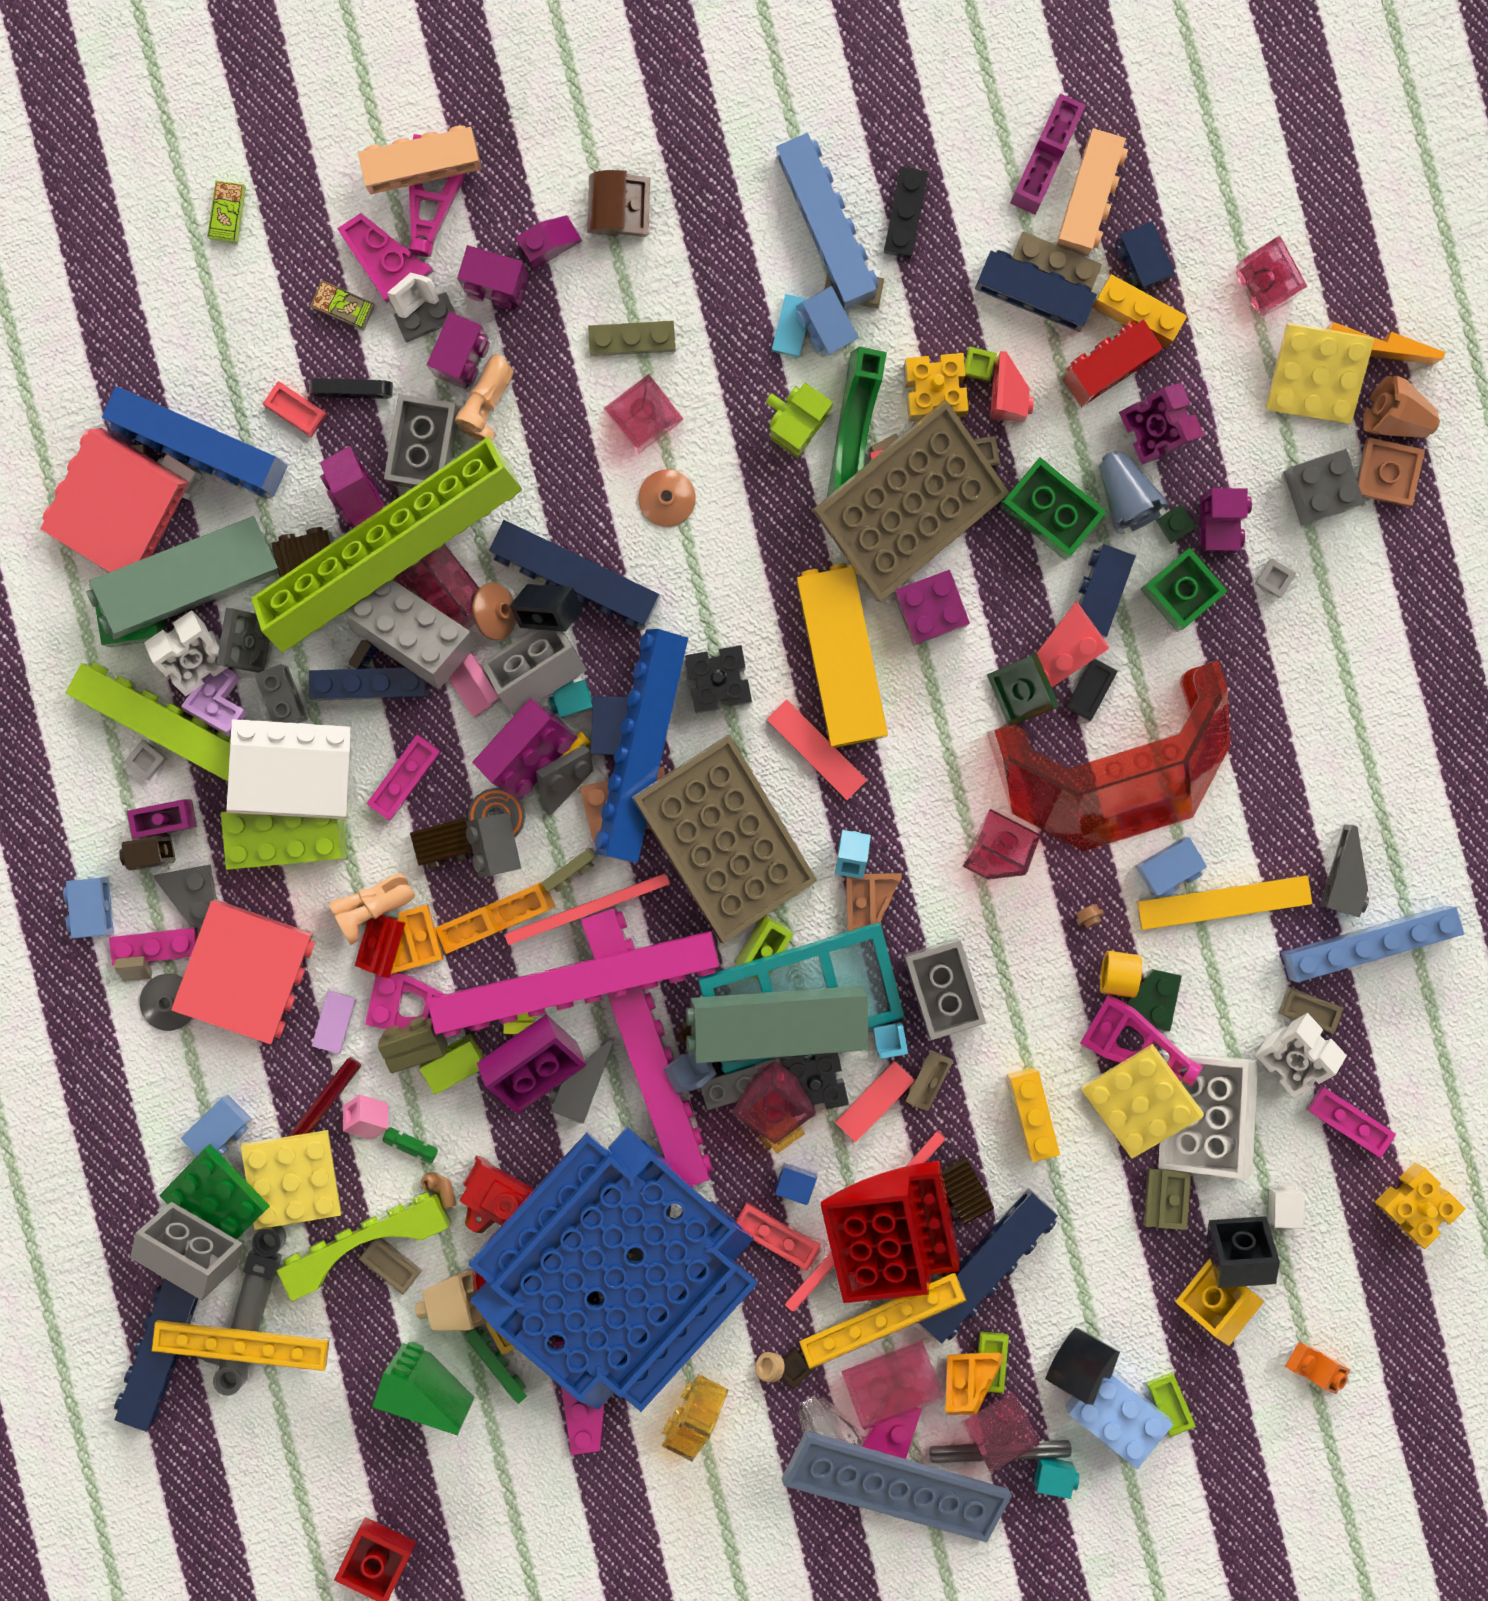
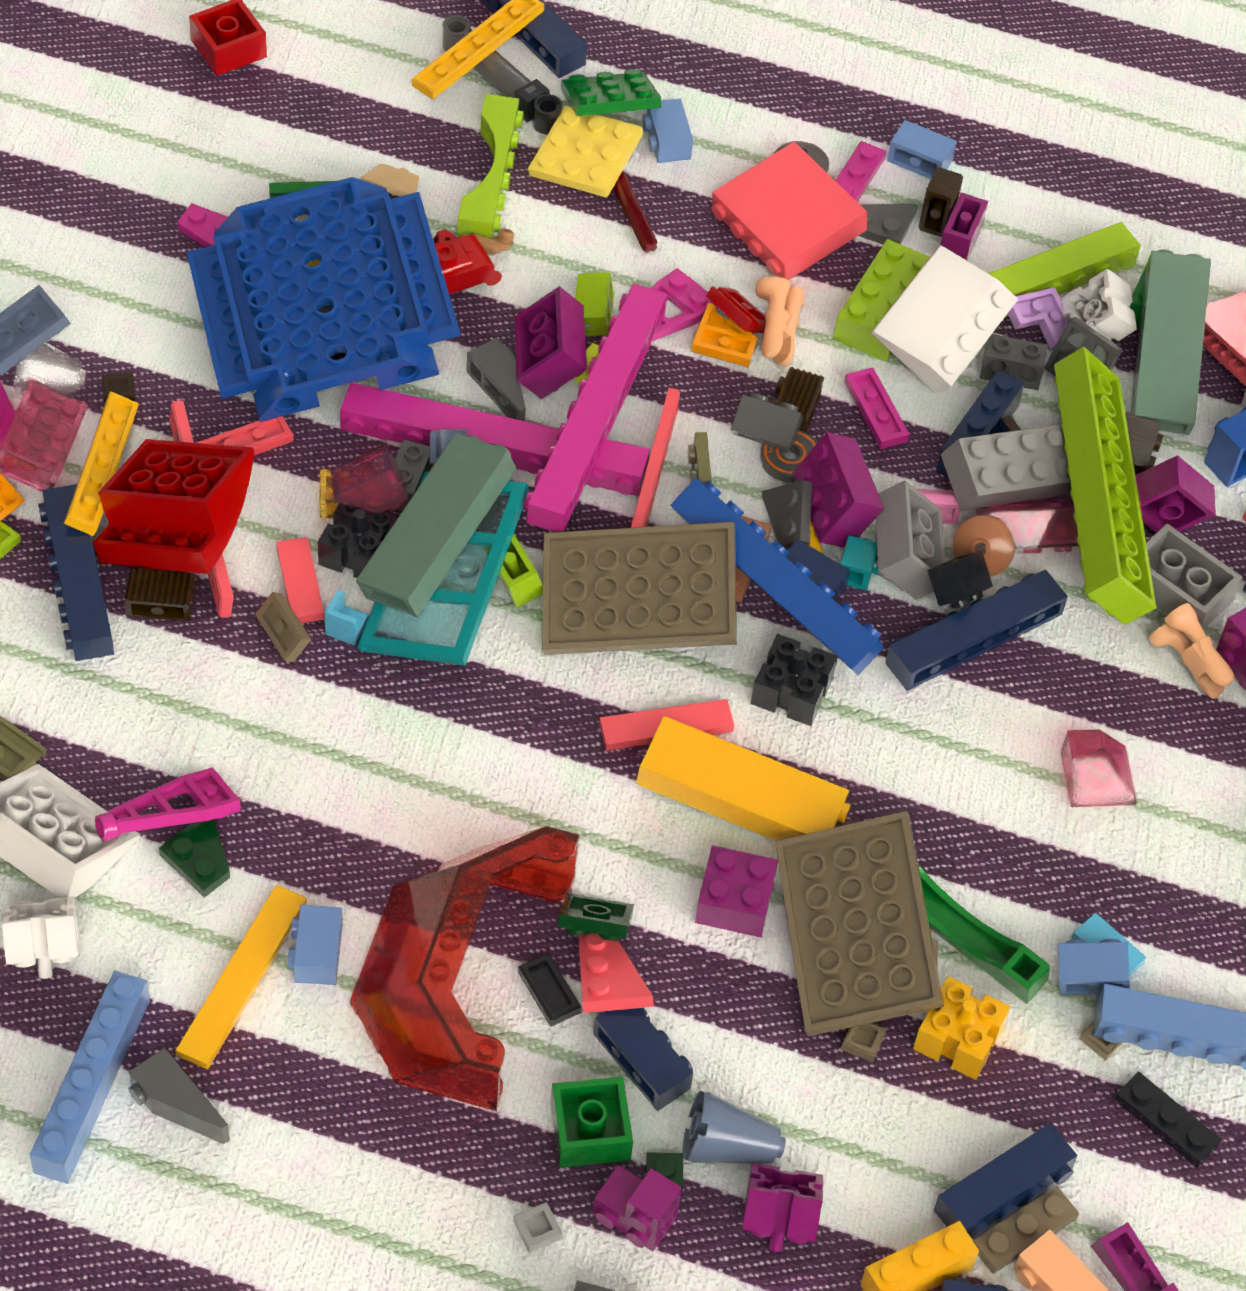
camera: 115 degrees right, 35 degrees down
(133, 968) = (847, 150): dark tan tile -> none
(145, 759) = (1021, 247): light grey plate -> none
(186, 1250) = (586, 46): light grey brick -> none
(334, 1022) = (696, 252): lavender tile -> none
(365, 1117) = (597, 226): bright pink panel -> none
(390, 1265) = (455, 179): dark tan tile -> none
(410, 1145) = (547, 243): green axle -> none
(411, 1045) = (635, 269): olive brick -> none
(423, 1390) = (339, 118): green slope -> none
(494, 917) = (699, 401): light orange slope -> none
(631, 338) = (1181, 808): olive plate -> none
(670, 512) = (1000, 759): nougat dish -> none
(695, 1419) = (147, 290): clear yellow brick -> none
(770, 1367) = (137, 369): tan tile -> none
(795, 1184) = (282, 474): blue panel -> none
(798, 418) = (1006, 882): lime brick -> none
(852, 854) = (545, 685): brick -> none
(869, 898) = (492, 680): nougat wing -> none
(944, 989) = (359, 682): light grey brick -> none
(979, 364) = (959, 1090): lime tile -> none
(1001, 848) = (455, 812): clear pink slope -> none
(1009, 392) = (916, 1084): coral slope -> none
(1033, 1114) = (180, 686): yellow brick -> none
(1053, 509) = (762, 1052): green brick -> none
(1089, 916) = (326, 846): medium nougat plate -> none
(1111, 362) = (881, 1195): red brick -> none
(1121, 974) = (250, 833): yellow piece -> none
(1142, 1101) = (114, 776): light yellow plate -> none
(1299, 1003) = (70, 987): dark tan tile -> none

